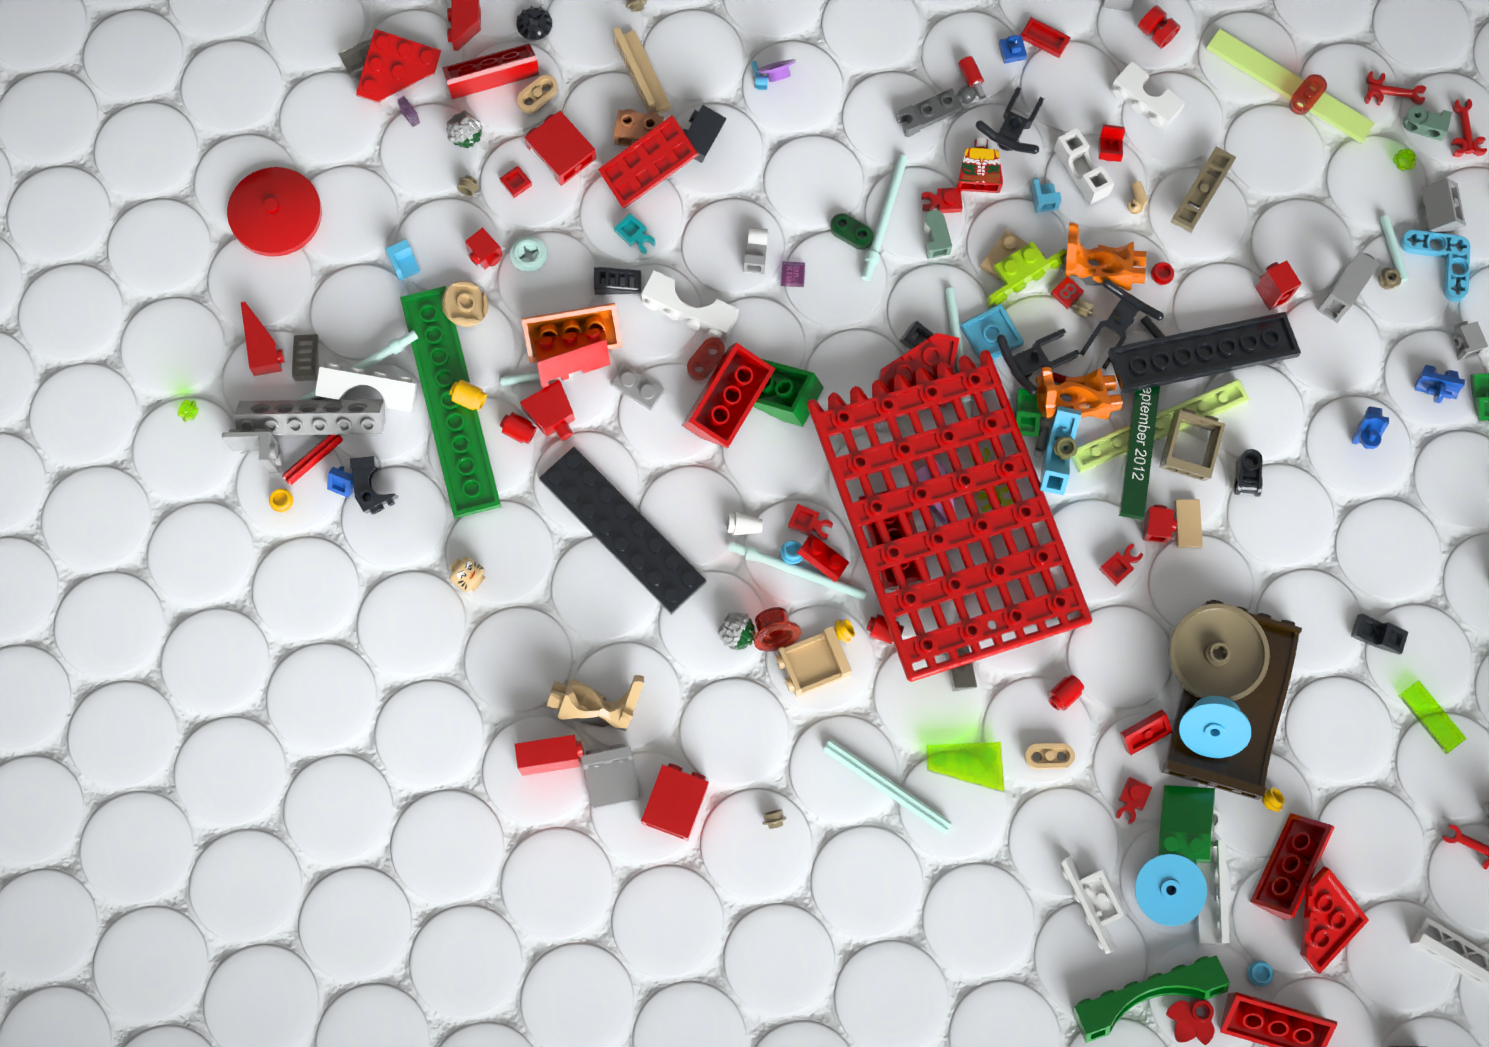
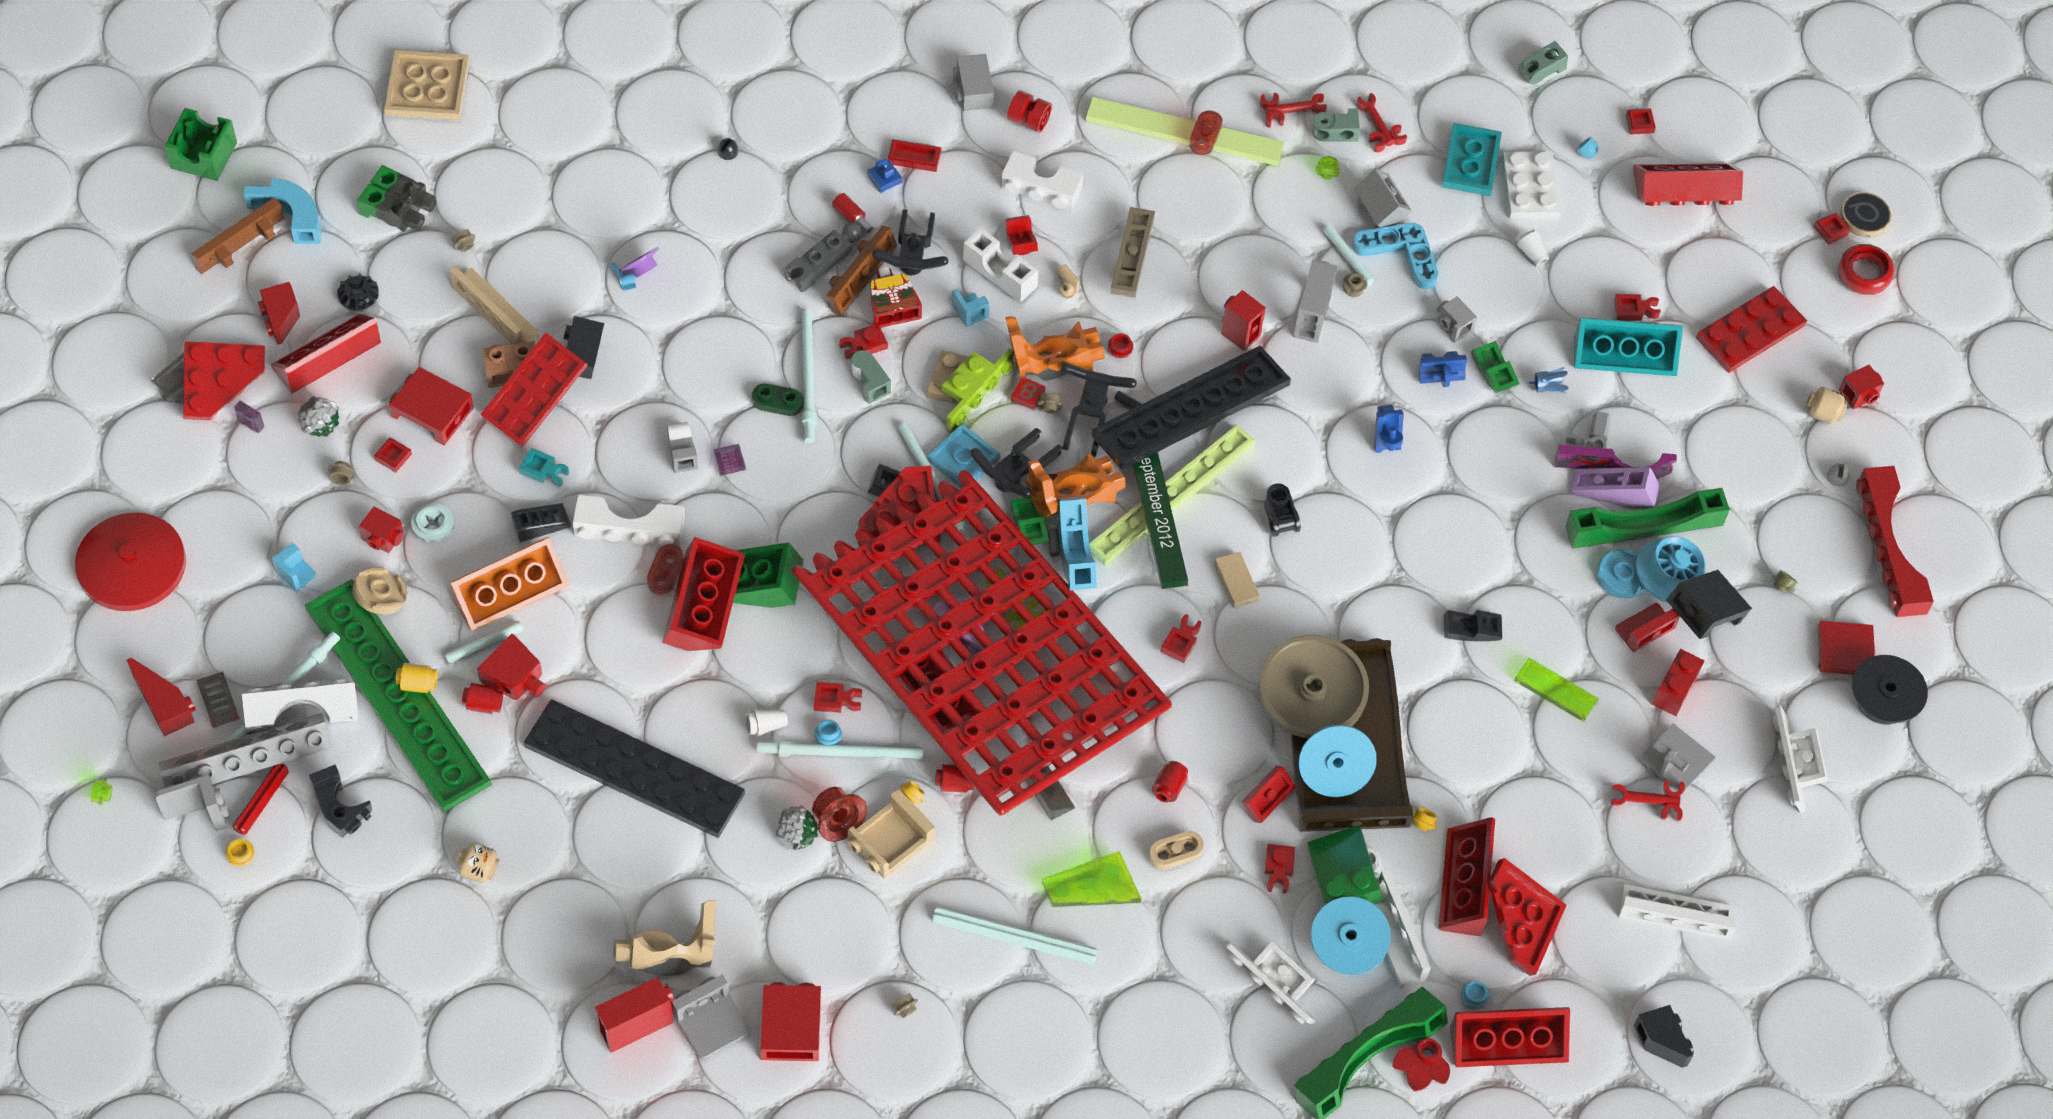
camera: 20 degrees left, 15 degrees down
(340, 481) = (302, 812): blue tile -> none
(535, 93) = (384, 361): tan plate -> none
(570, 354) = (516, 603): wedge -> none
(637, 387) = (600, 620): light grey plate -> none
(823, 557) = (863, 726): red plate -> none
(946, 145) = (859, 273): none -> dark orange hinge
(1070, 443) = (1084, 532): olive plate -> none
(1159, 524) = (1206, 587): red brick -> none
(1184, 467) = (1212, 524): dark tan window -> none

